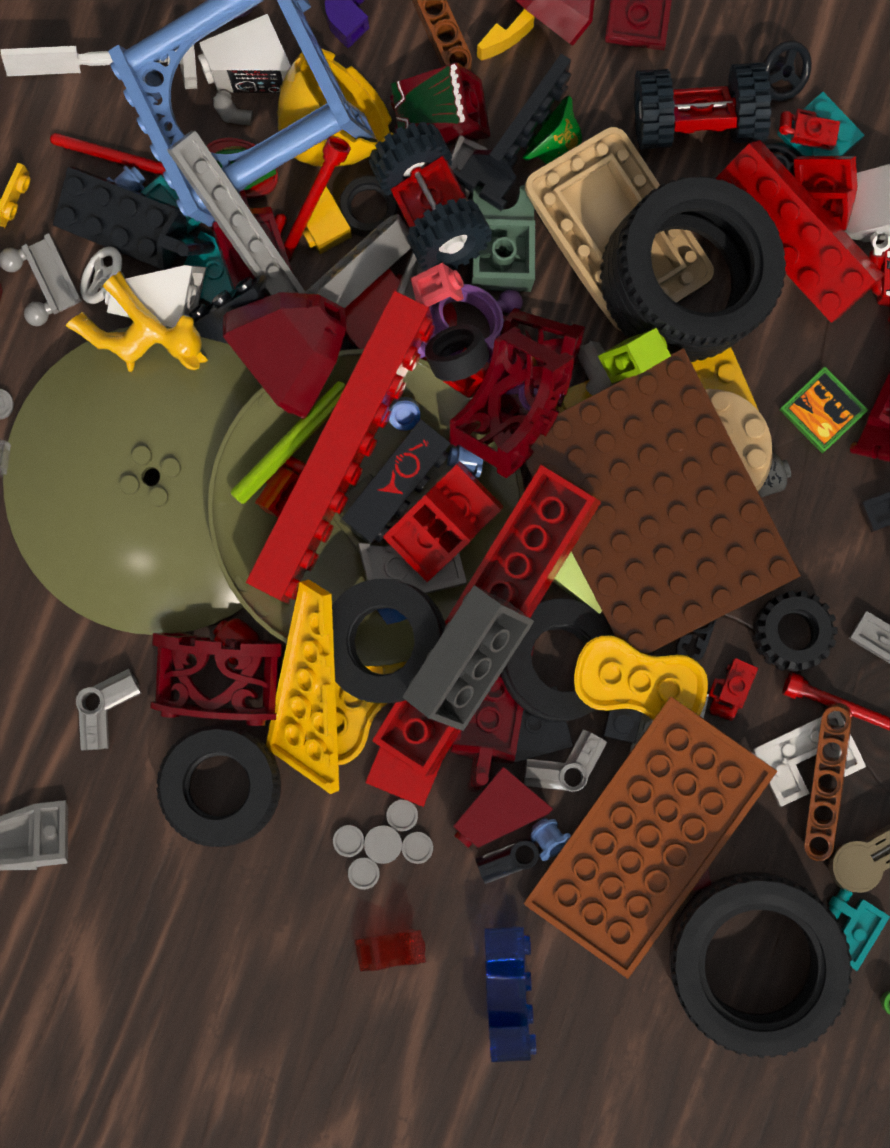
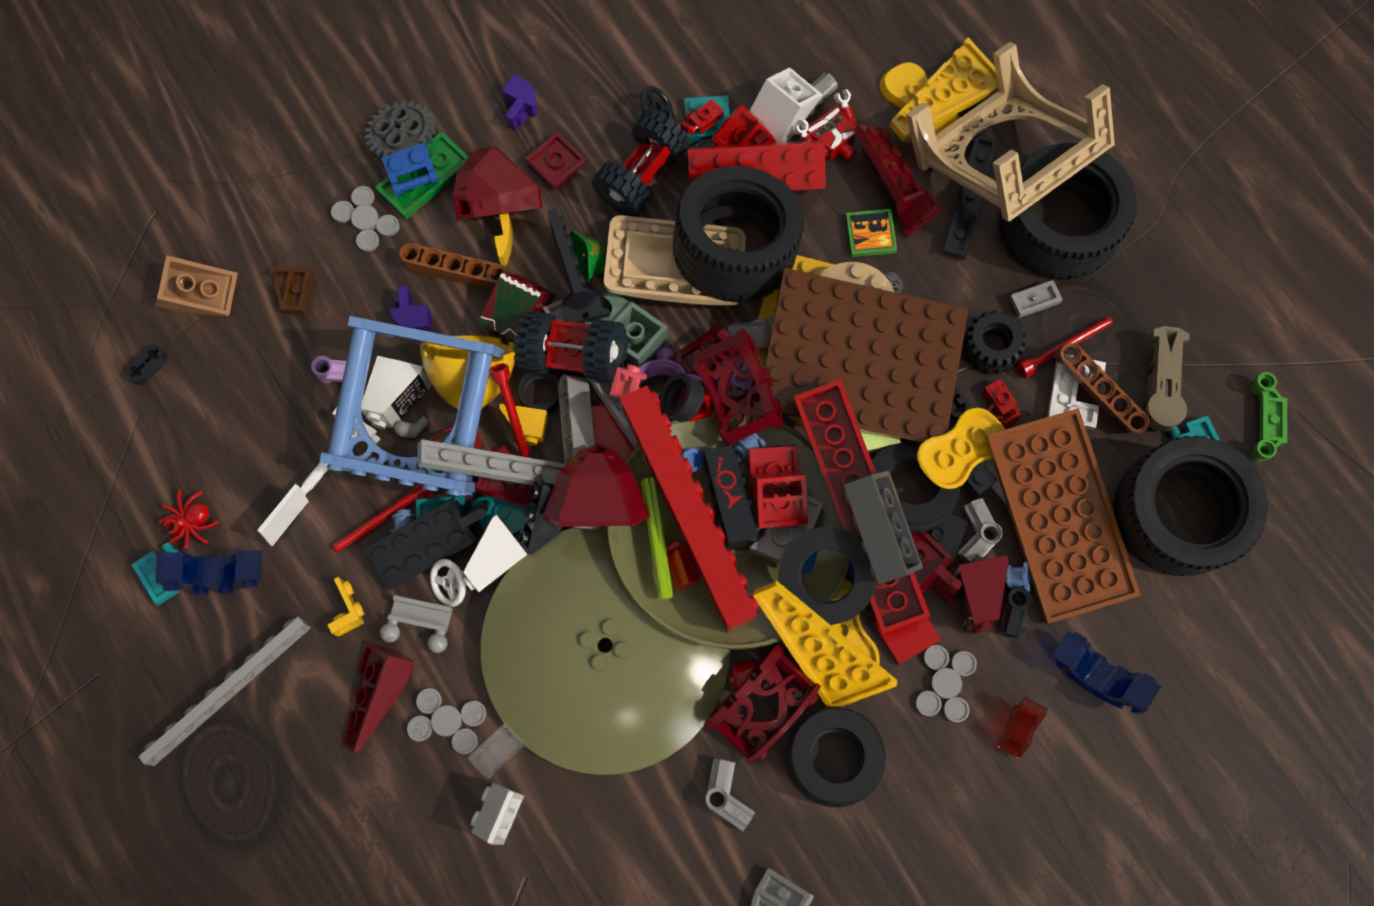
camera: 50 degrees left, 10 degrees down
(181, 341) = (536, 558): yellow animal -> none
(634, 355) = (765, 299): lime brick -> none

